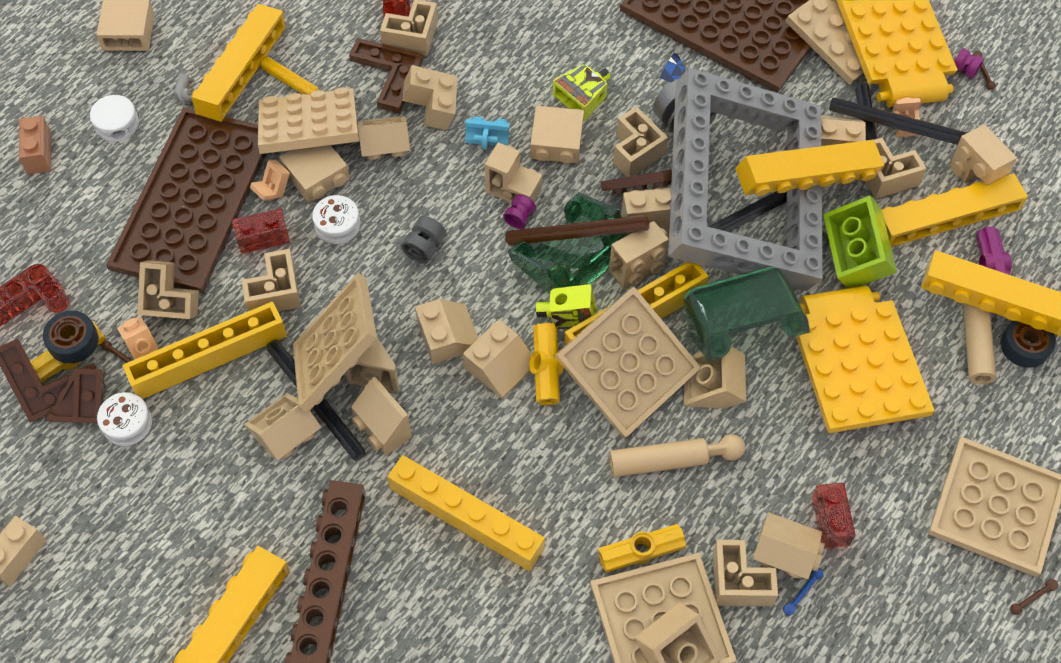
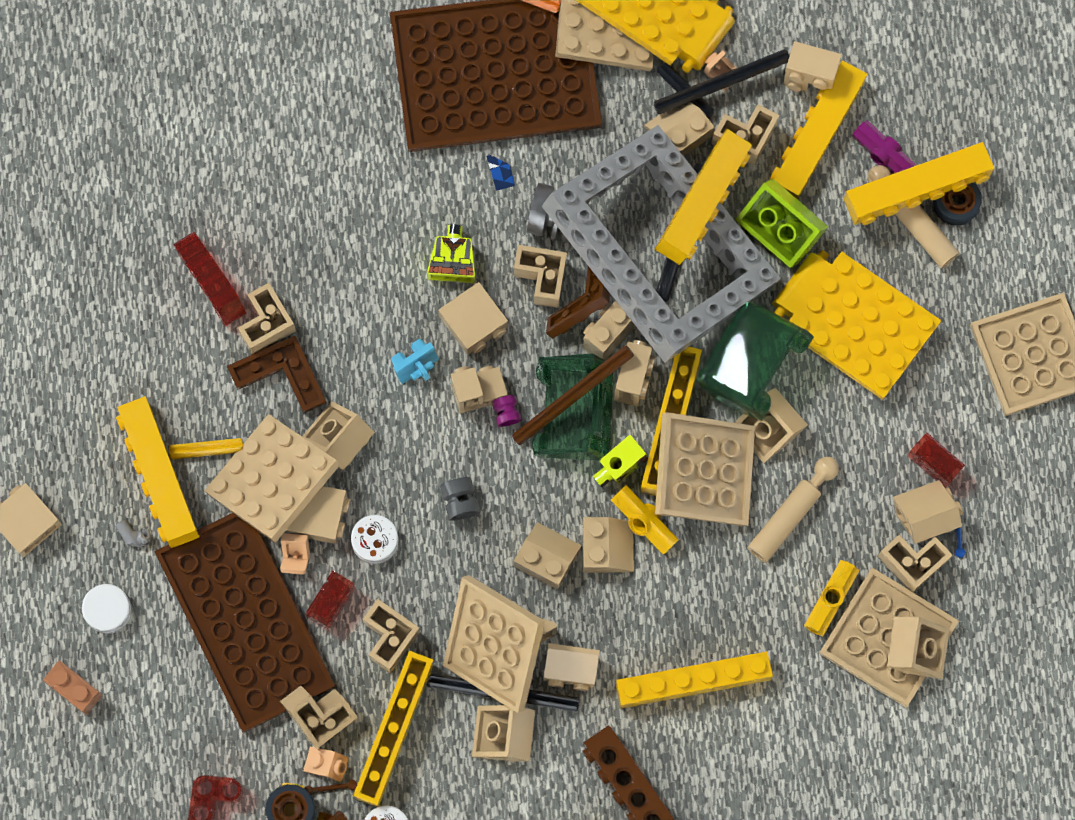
camera: 45 degrees left, 15 degrees up
(435, 92) = (345, 363): tan brick -> none

